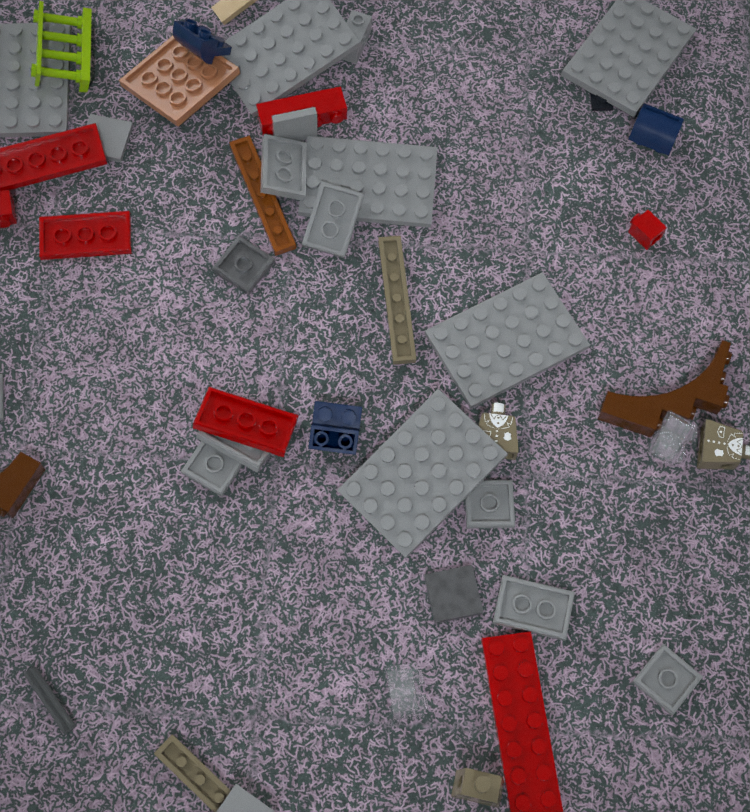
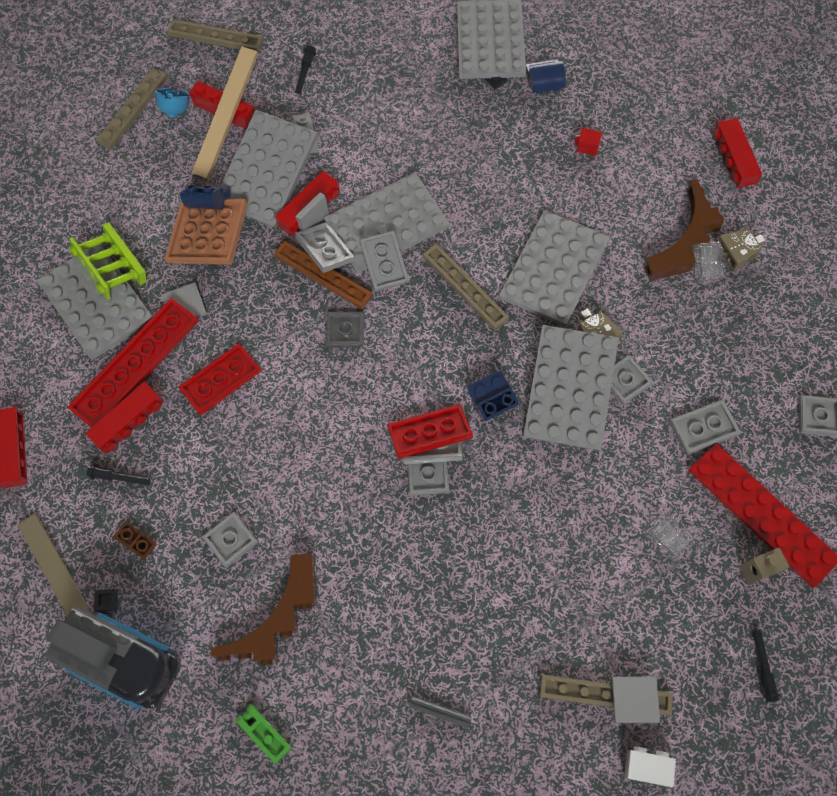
camera: 25 degrees left, 0 degrees up
(453, 594) = (649, 453): flat silver tile -> none

